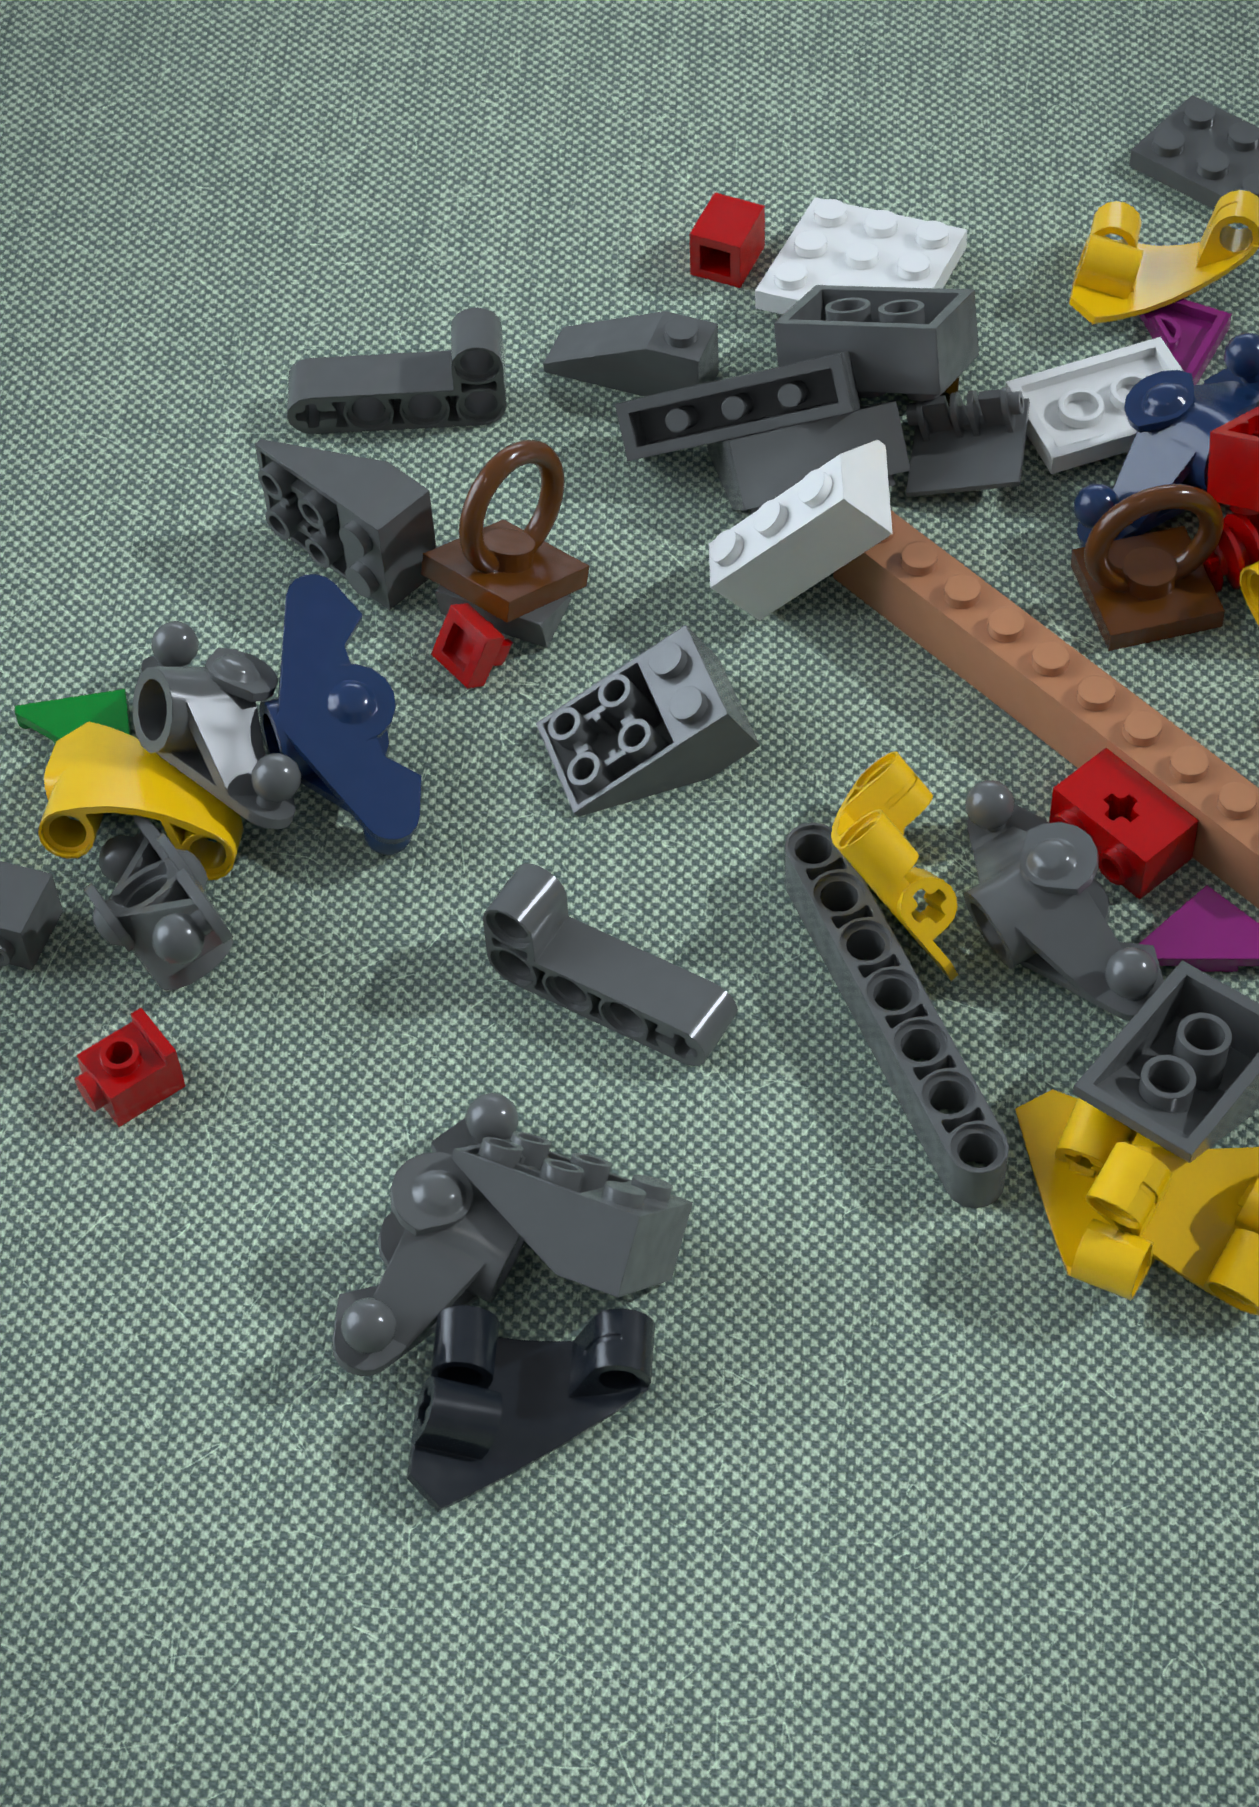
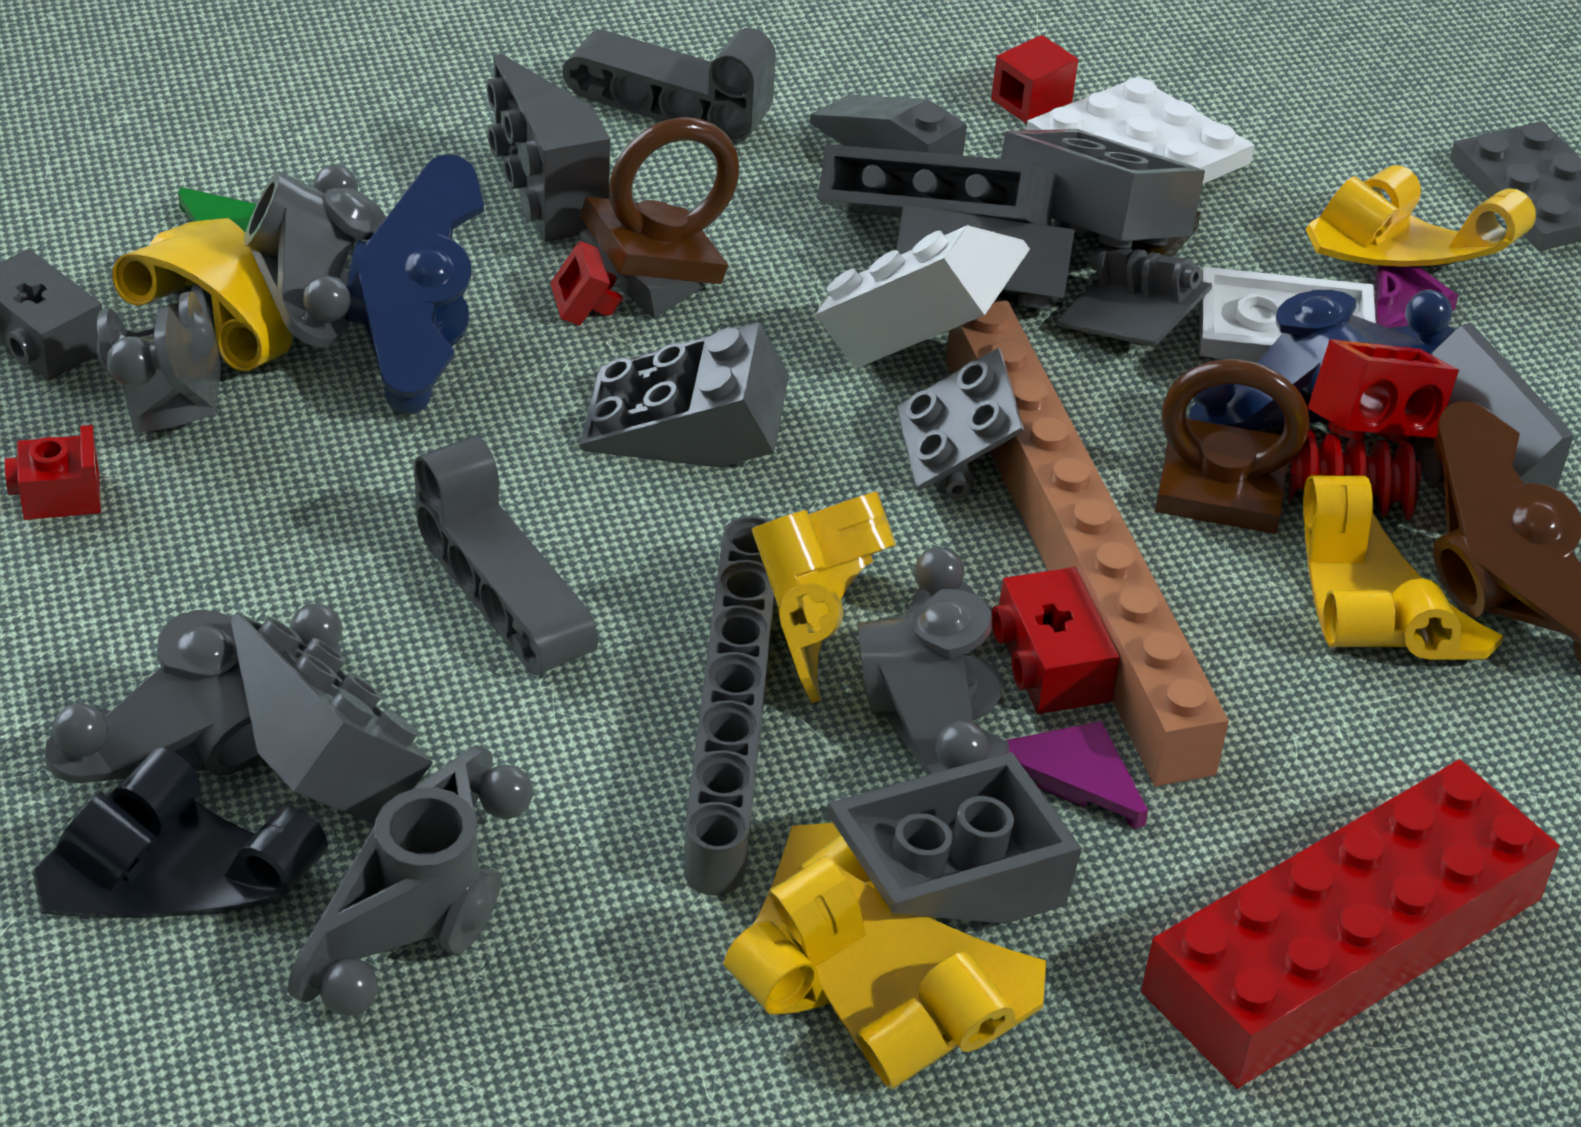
camera: 20 degrees right, 10 degrees down
(762, 1340) = (411, 881): none -> dark grey piece
(910, 643) = (959, 423): none -> dark grey hinge

